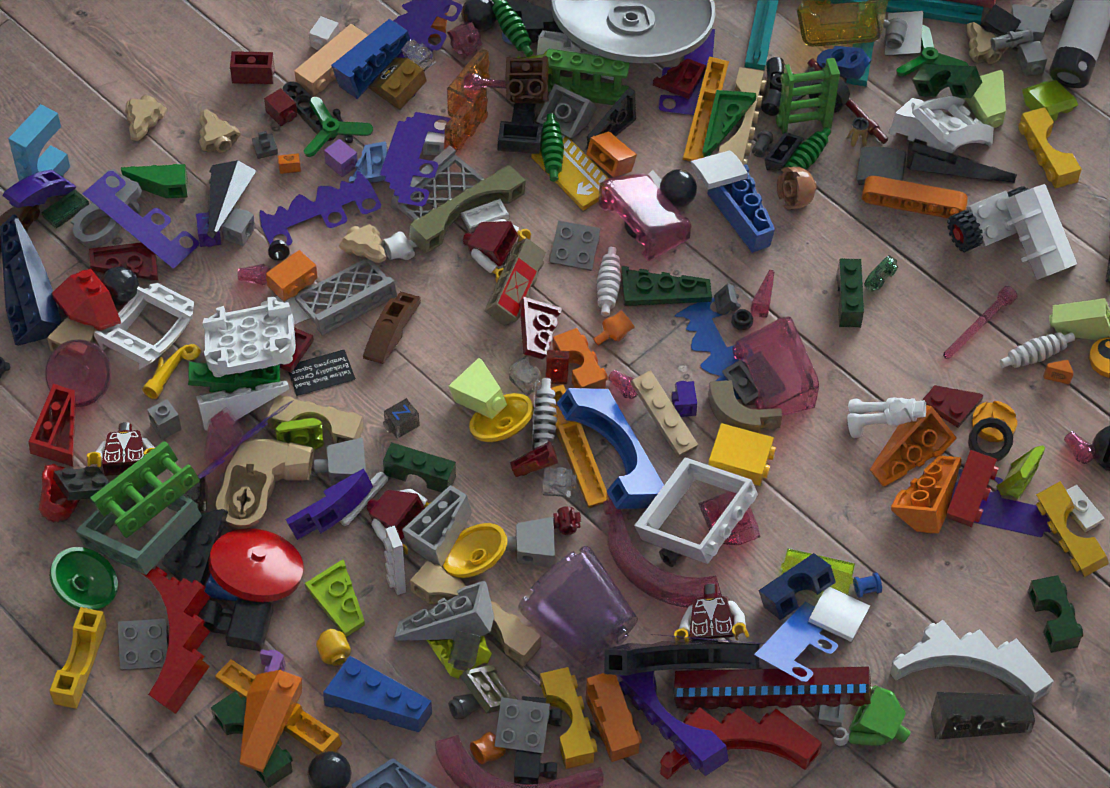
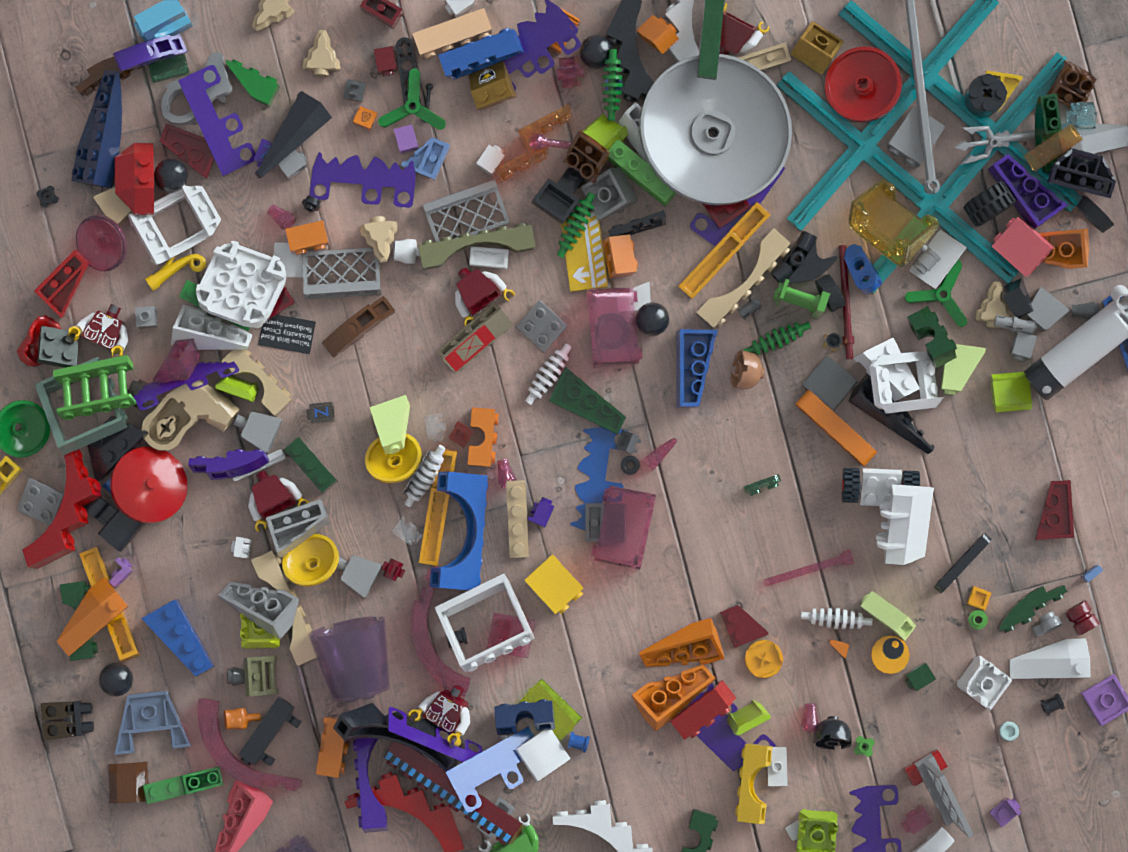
camera: 30 degrees right, 30 degrees up
(333, 647) = (170, 580): yellow head -> none
(337, 598) = (195, 540): lime wing -> none
(403, 156) = (453, 169): dark purple piece -> none
(418, 54) = (518, 73): clear brick -> none
(464, 650) = (254, 643): clear smoke brick -> none
(522, 725) = (262, 723): light grey hinge -> none
(534, 460) = (397, 509): dark red wing -> none
(537, 326) = (468, 387): wing -> none
(575, 744) = (310, 702): yellow arch -> none
(615, 328) = (527, 420): orange piece -> none
(719, 169) = (690, 324): white slope -> none
(726, 112) = (733, 268): green wing -> none
(731, 412) = (567, 540): dark tan arch -> none
(782, 151) = (759, 327): black slope -> none
(851, 292) = (726, 489): dark green arch -> none
(895, 410) = (686, 620): white piece -> none
(994, 423) = (740, 691): black tyre -> none
(1060, 167) = (970, 464): yellow arch -> none

